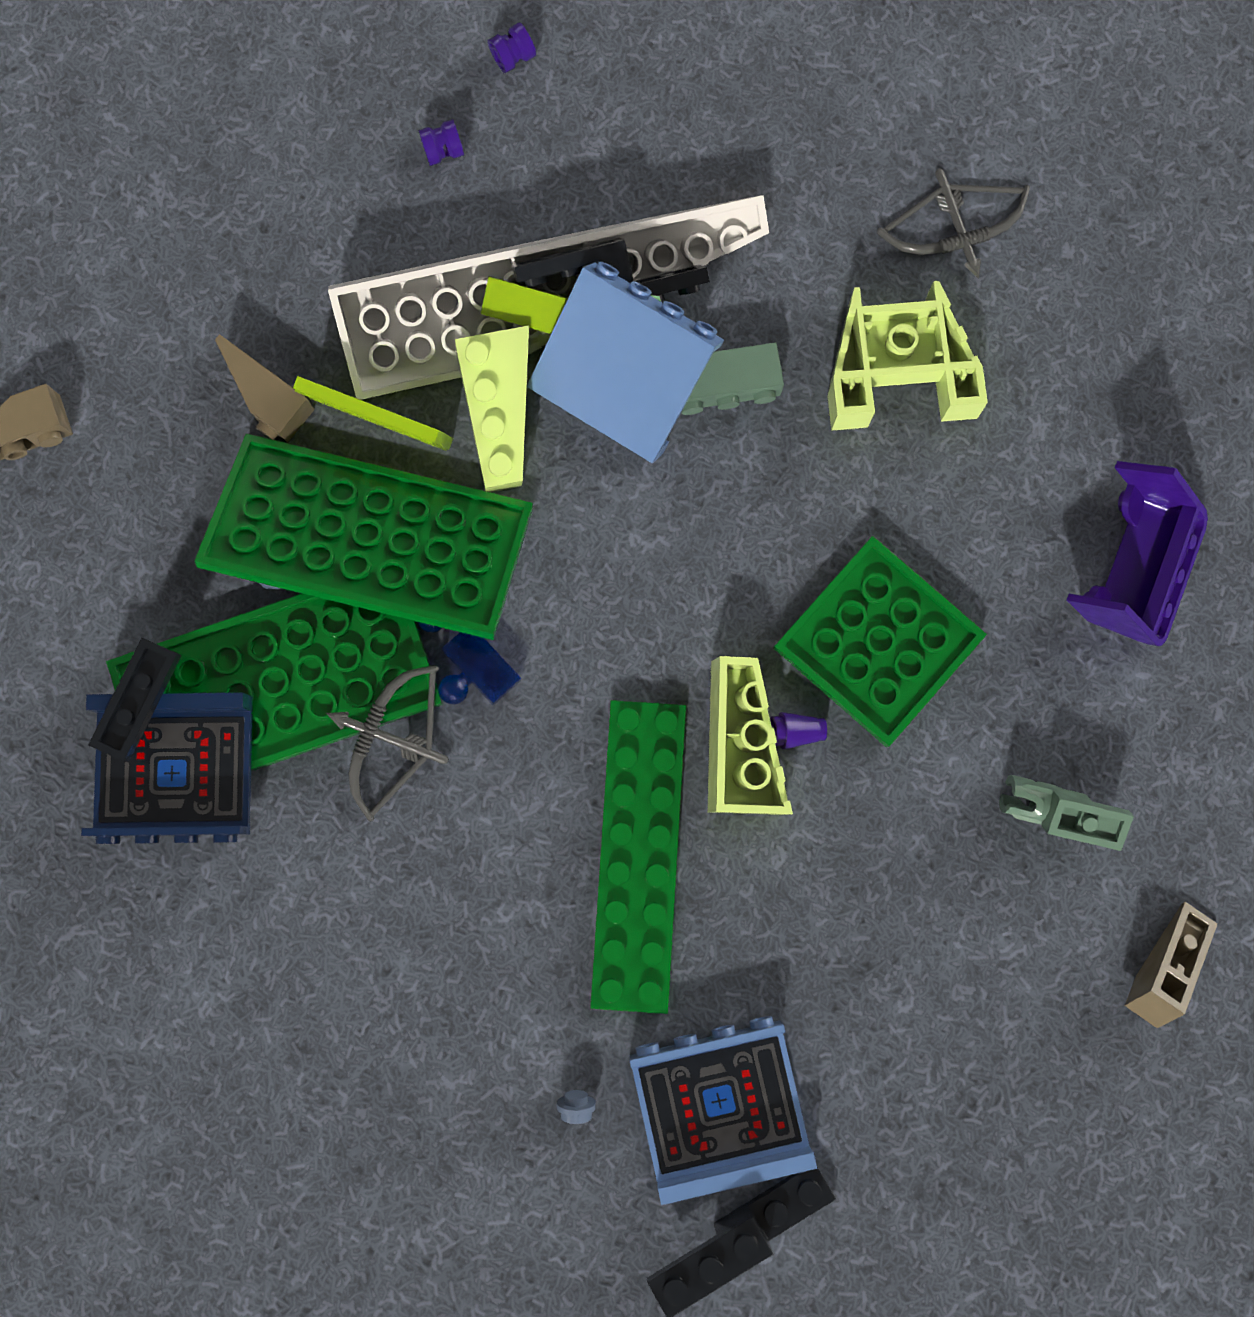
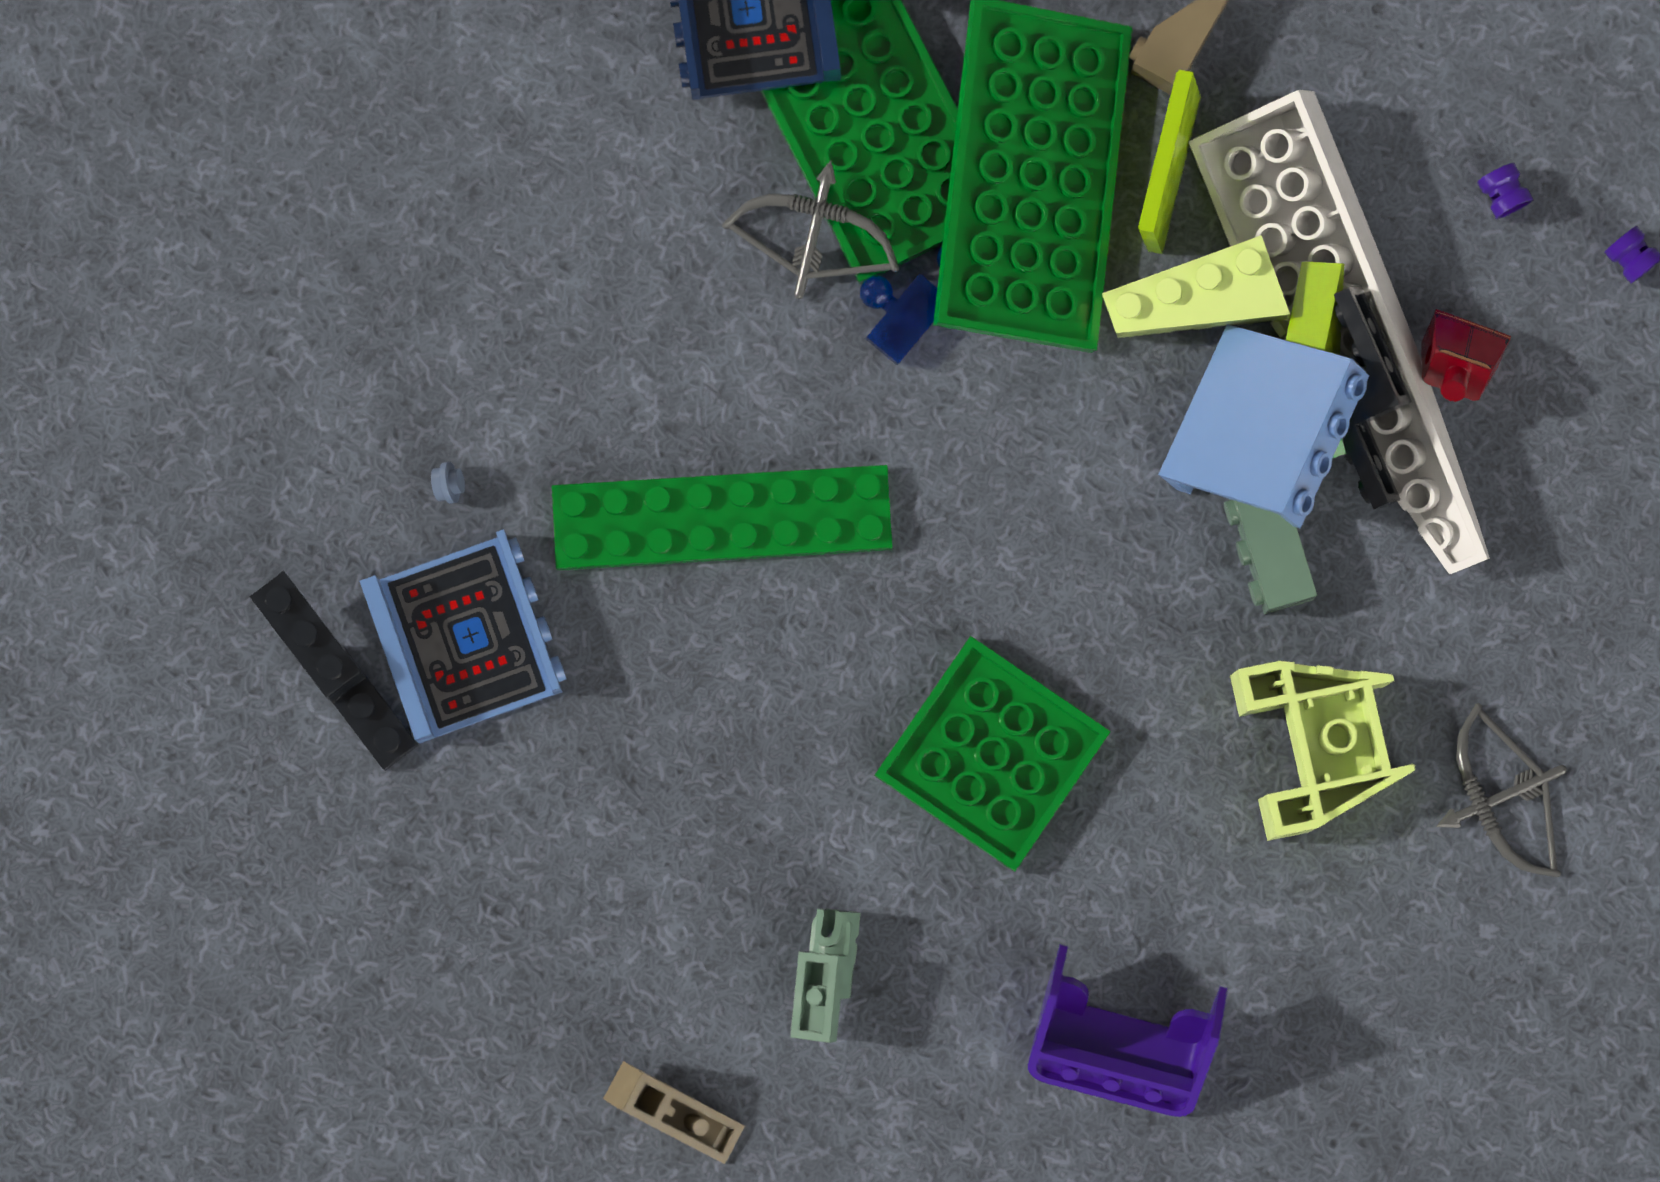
camera: 85 degrees right, 0 degrees up
(581, 196) = (1460, 356): none -> dark red torso
(742, 746) = (846, 613): yellowish green wedge -> none
(797, 730) = (880, 672): dark purple cone -> none

